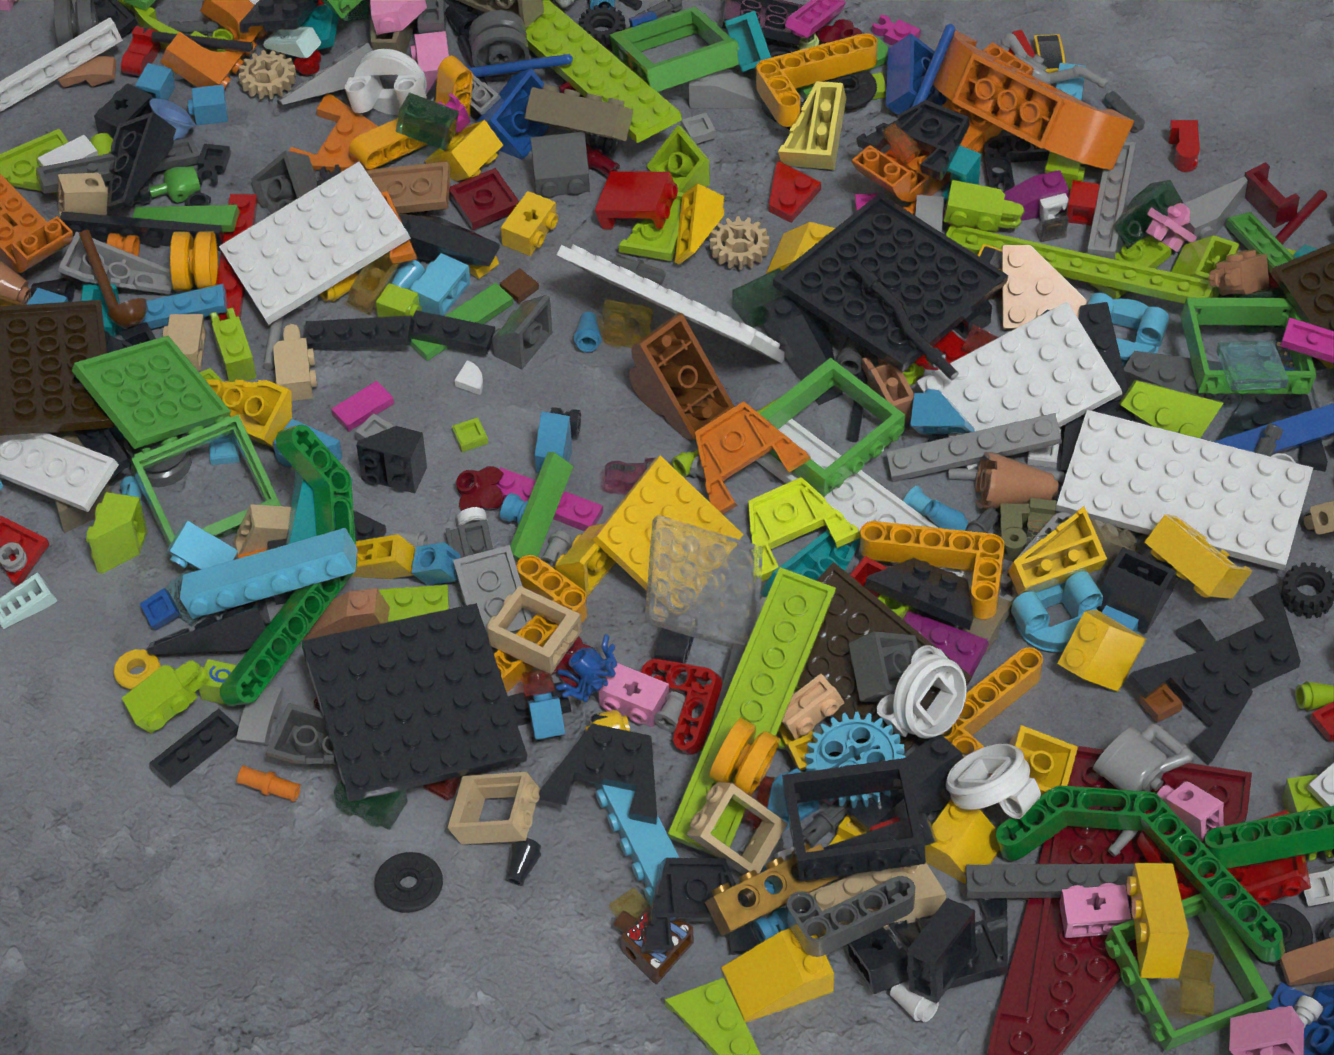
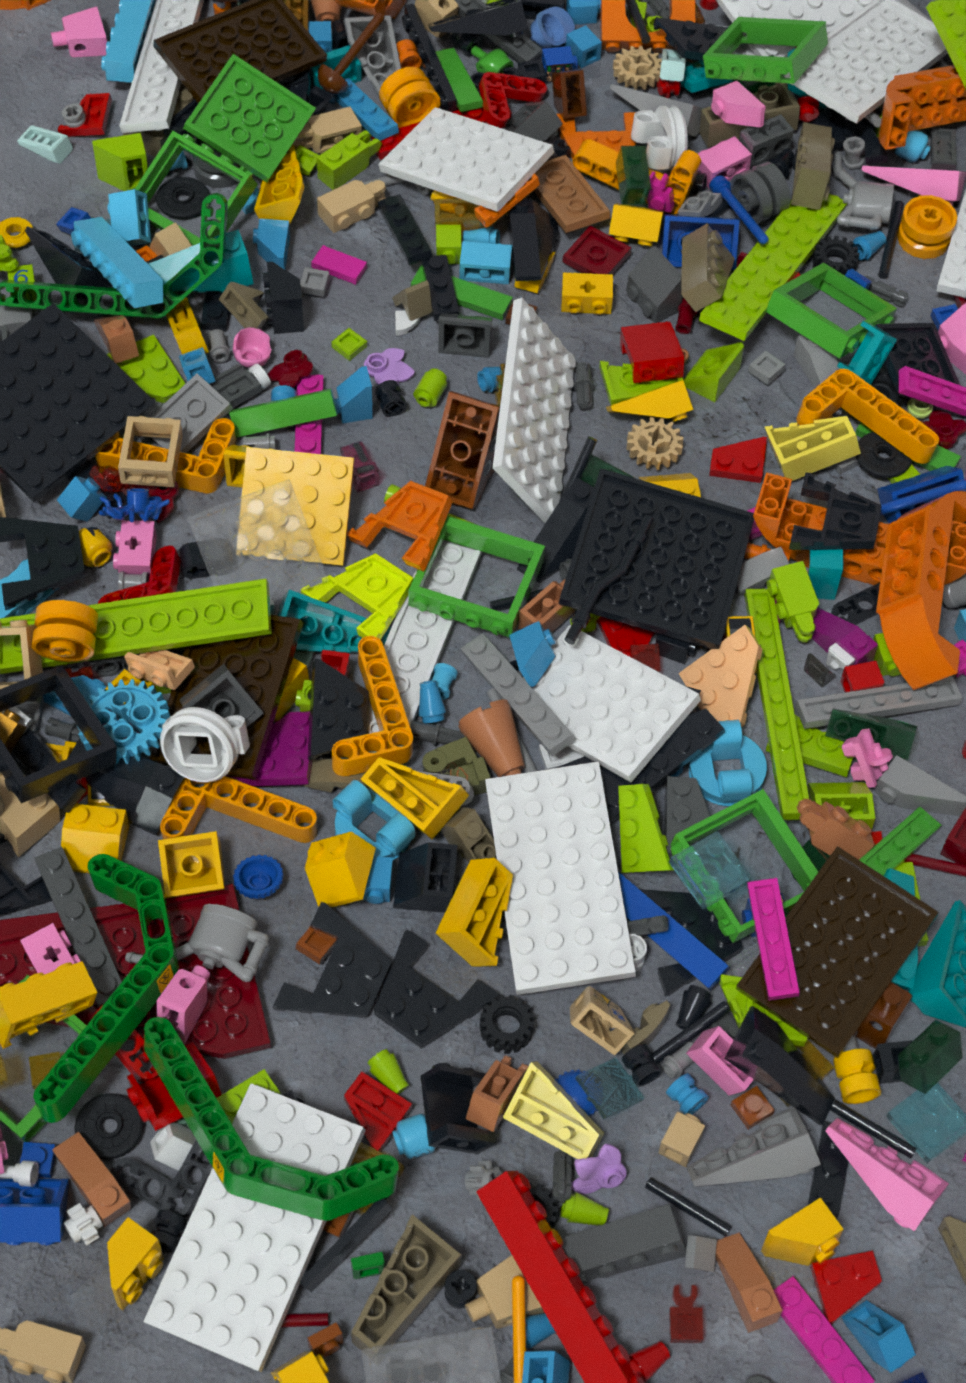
camera: 60 degrees right, 5 degrees up
(193, 491) = (169, 191): none -> black wheel
(219, 129) = (558, 60): none -> blue brick
(226, 187) = (497, 87): none -> red beam
(271, 133) = (569, 91): none -> reddish brown torso
(381, 498) = (243, 305): none -> dark tan slope
(434, 512) = (251, 347): none -> bright pink hair
(454, 354) = (415, 300): none -> dark tan slope
(519, 414) = (389, 366): none -> lavender plate
(571, 386) = (430, 388): none -> lime brick
(752, 302) = (581, 462): none -> black bar
(901, 144) = (815, 505): clear orange cone -> none
(1008, 784) = (137, 824): white piece -> none
(1069, 721) = (258, 876): none -> blue hat

